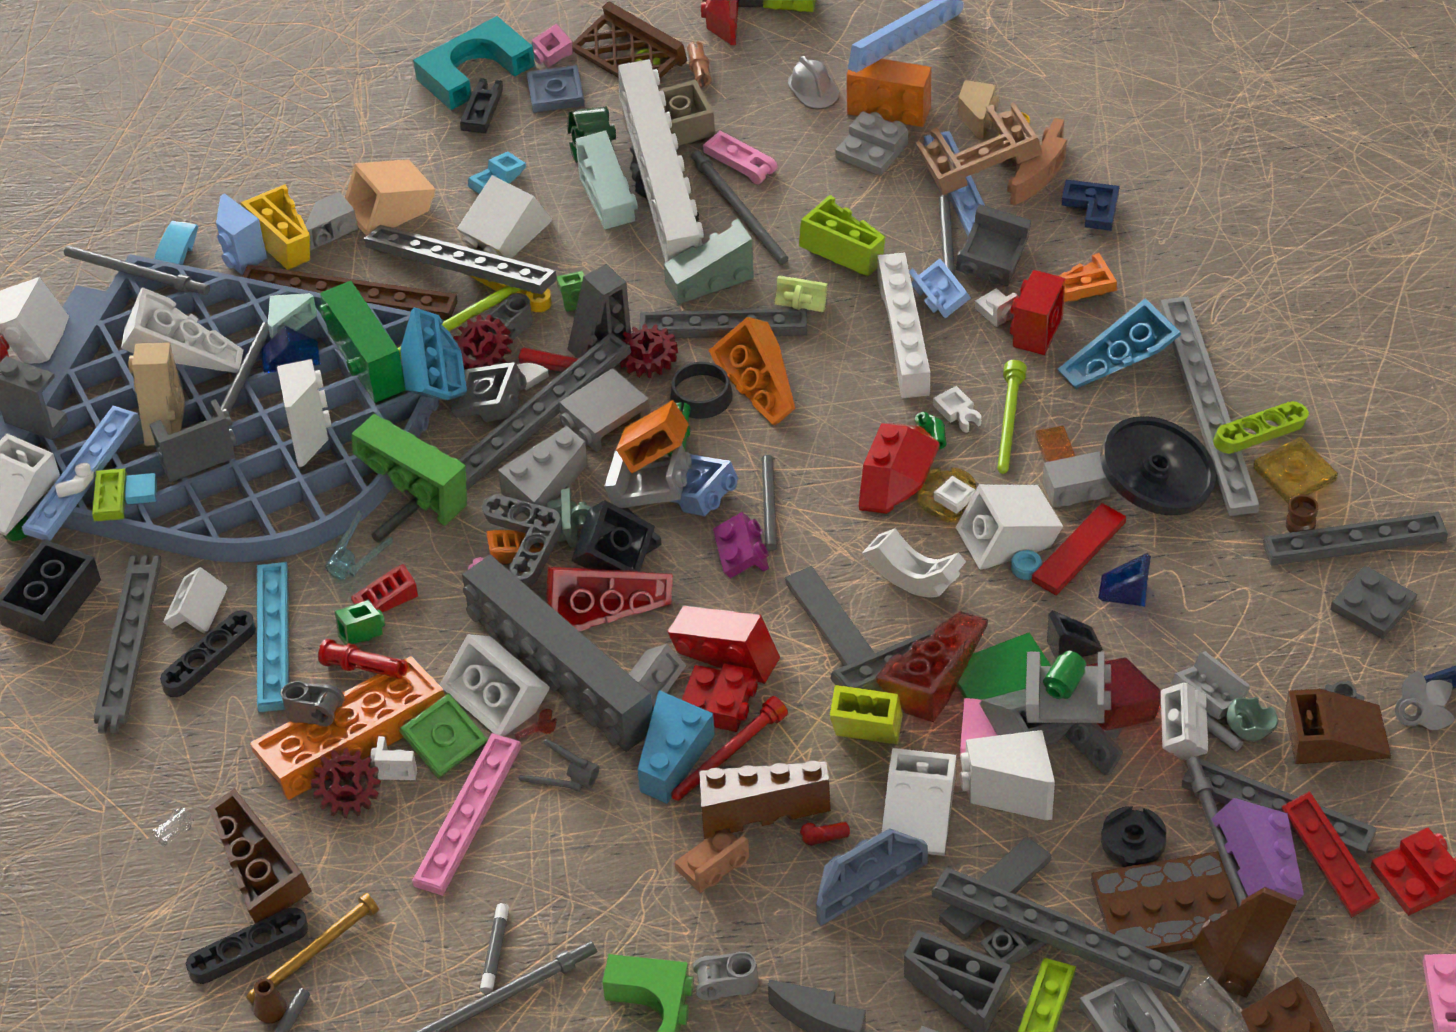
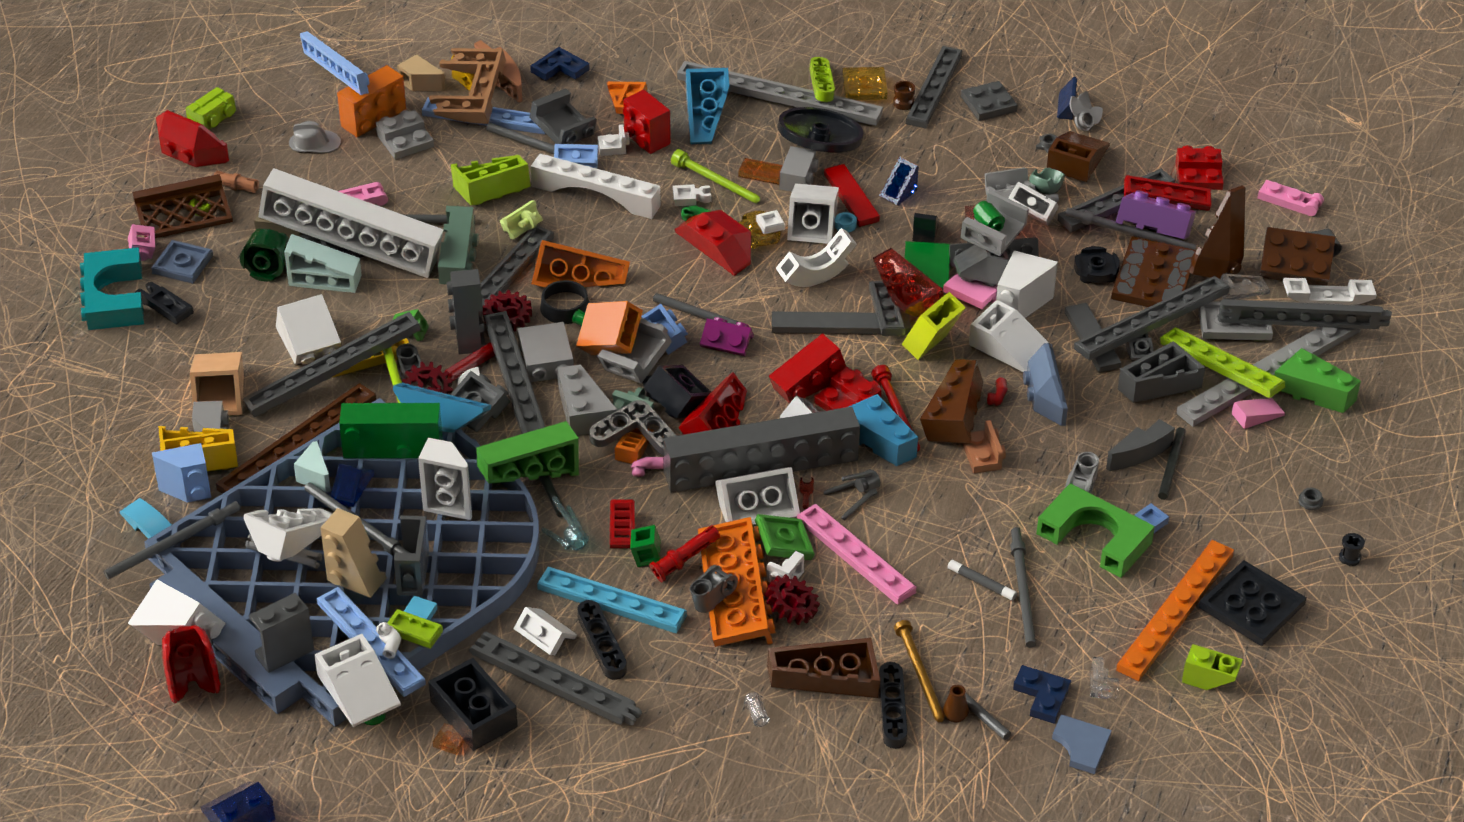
camera: 65 degrees left, 5 degrees down
(504, 167) = (246, 322): medium azure slope -> none

